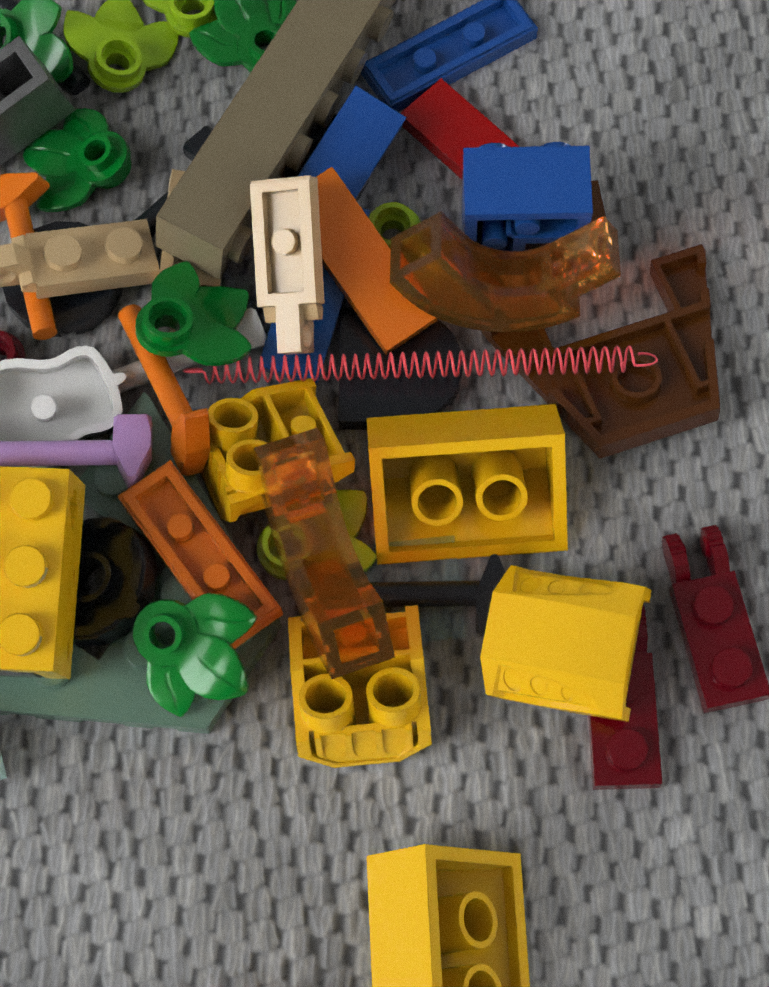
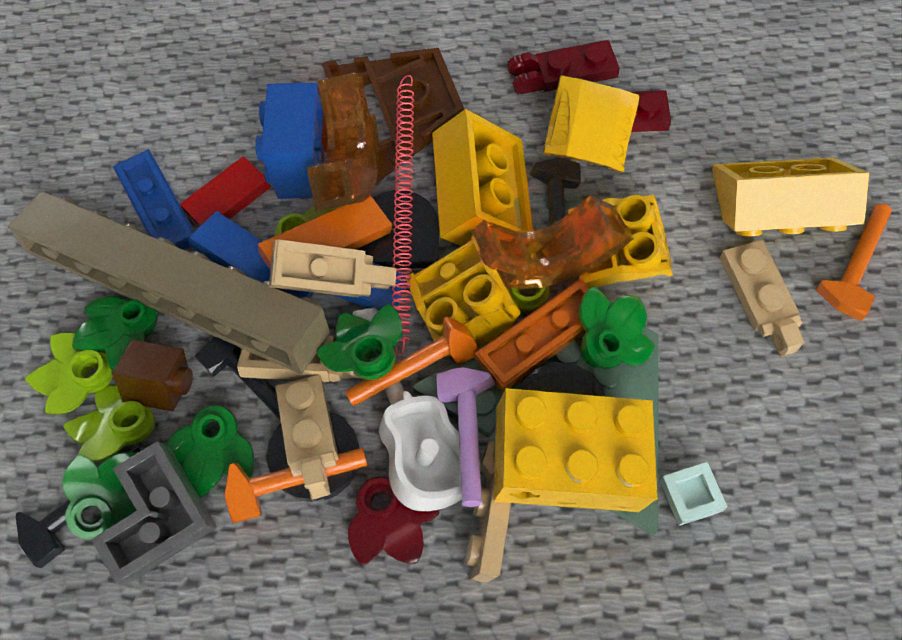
camera: 90 degrees left, 5 degrees down
(172, 77) = (153, 375): none -> reddish brown brick
(272, 901) = (764, 295): none -> tan hinge

